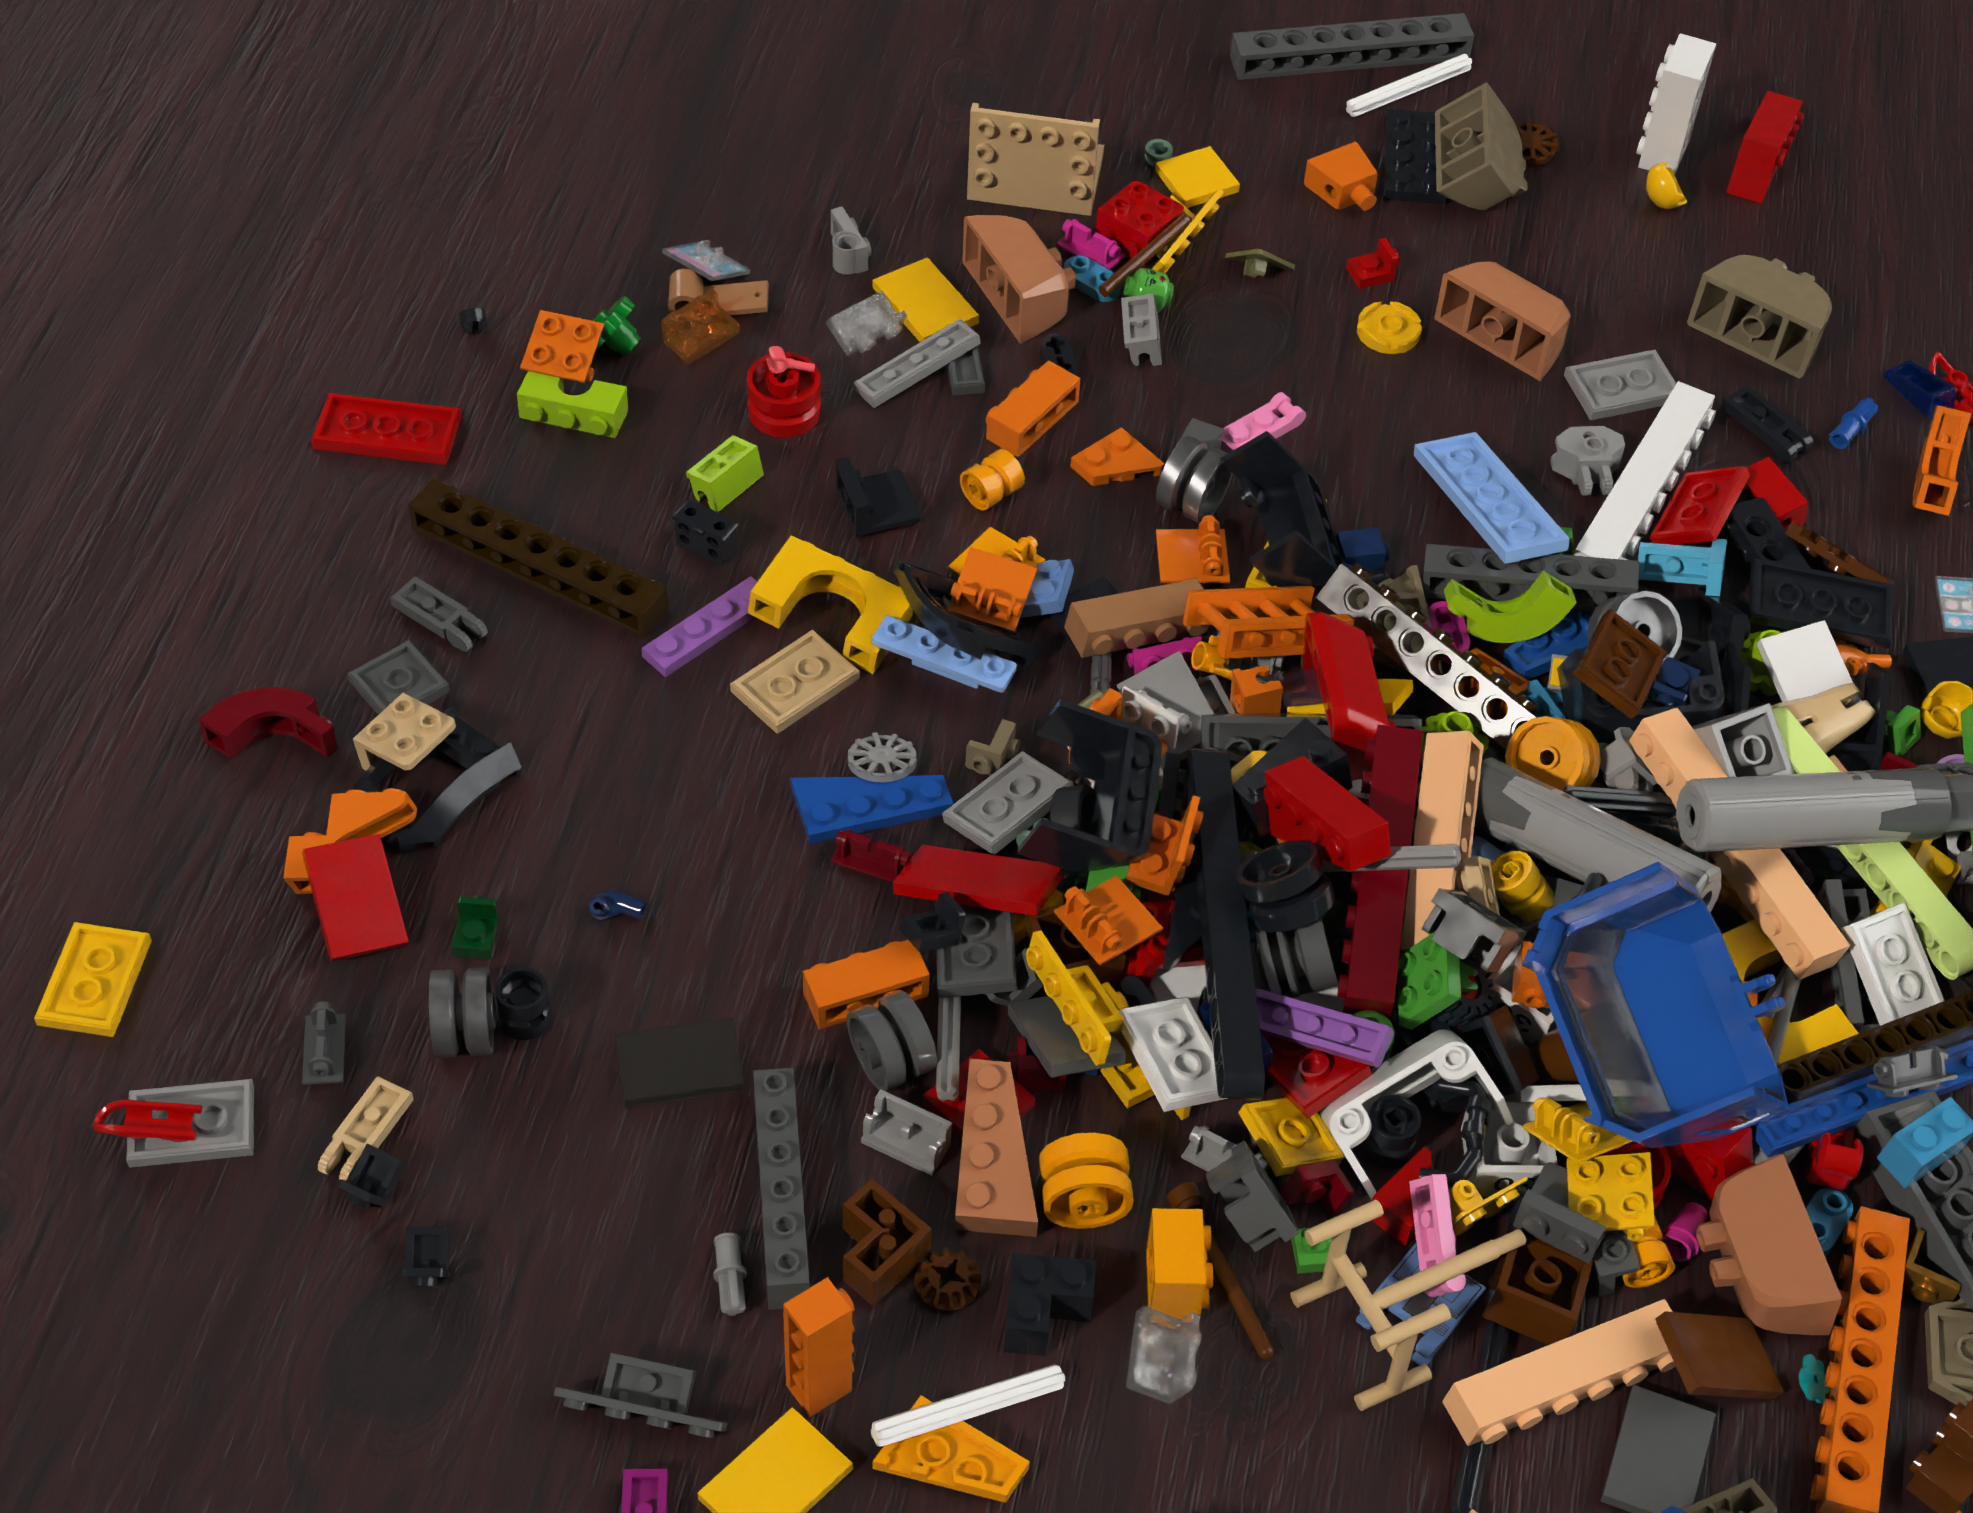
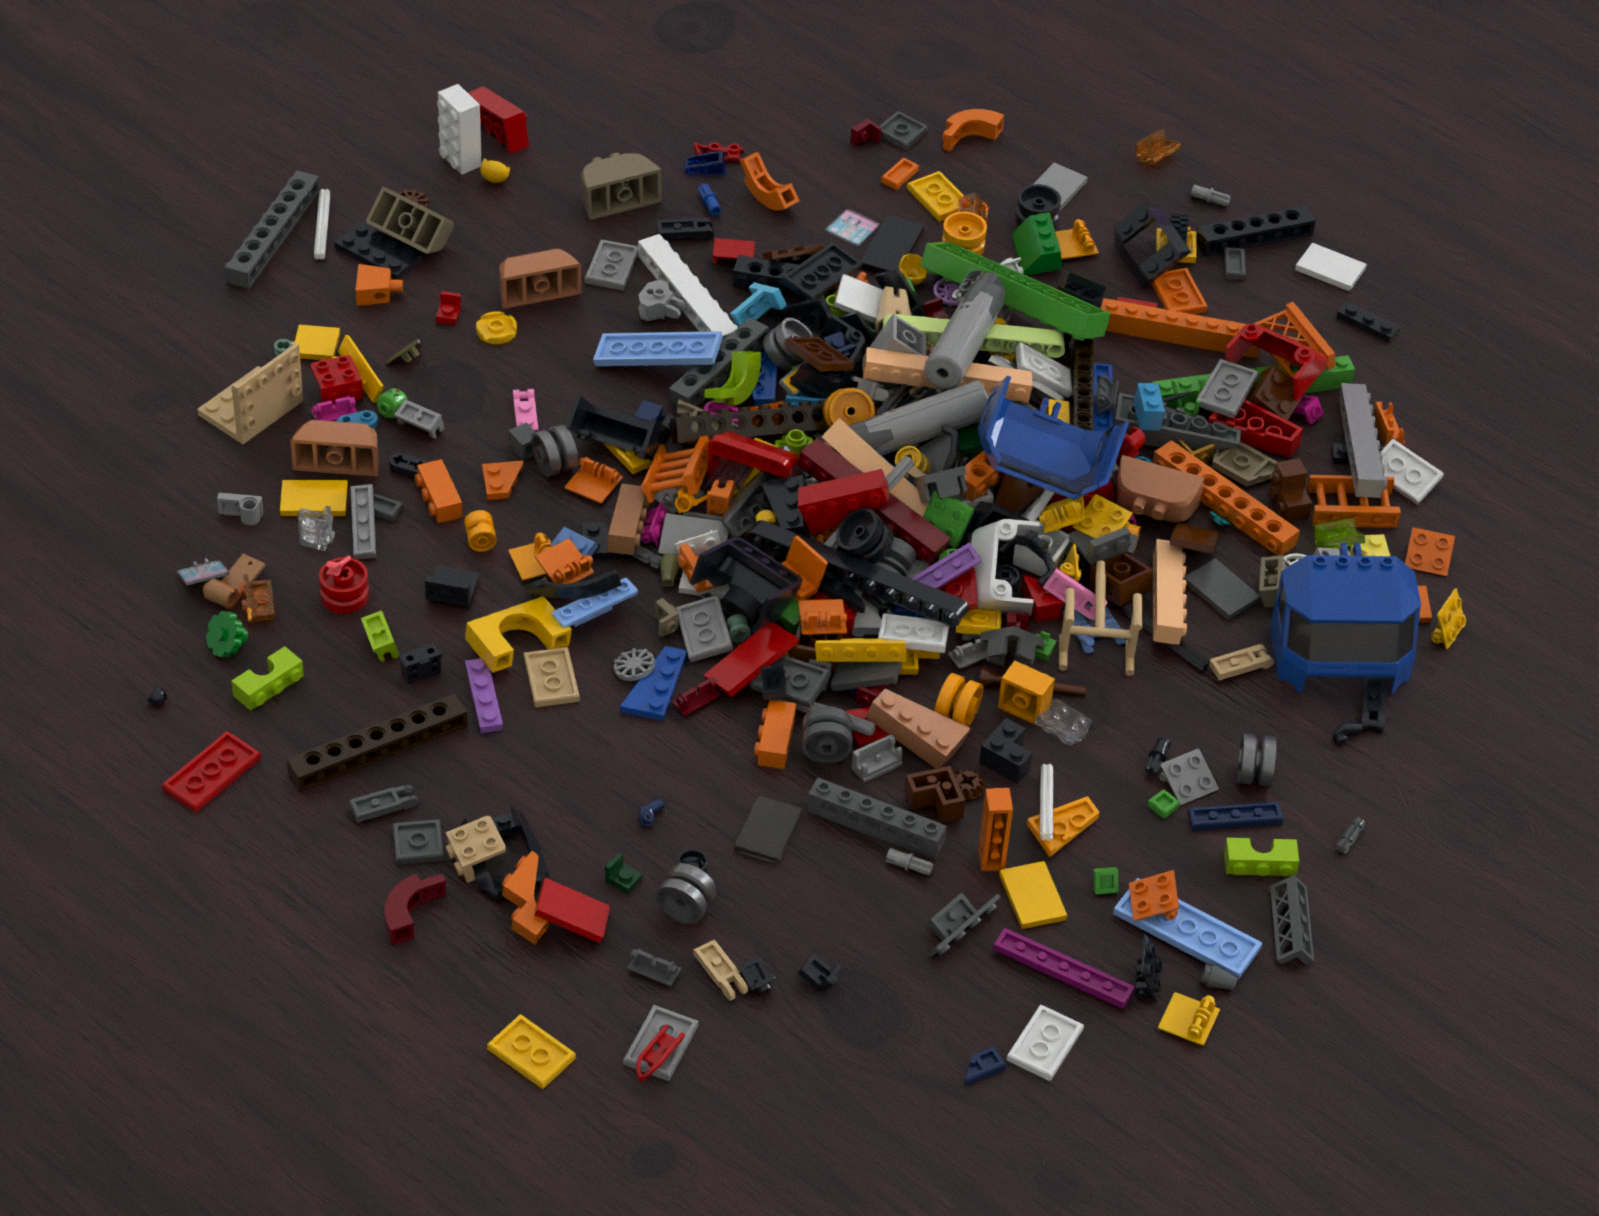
camera: 60 degrees left, 5 degrees down
(562, 346) = (233, 657): orange hinge -> none
(1144, 255) = (368, 390): reddish brown bar -> none
(1700, 506) = (723, 280): red tile -> none

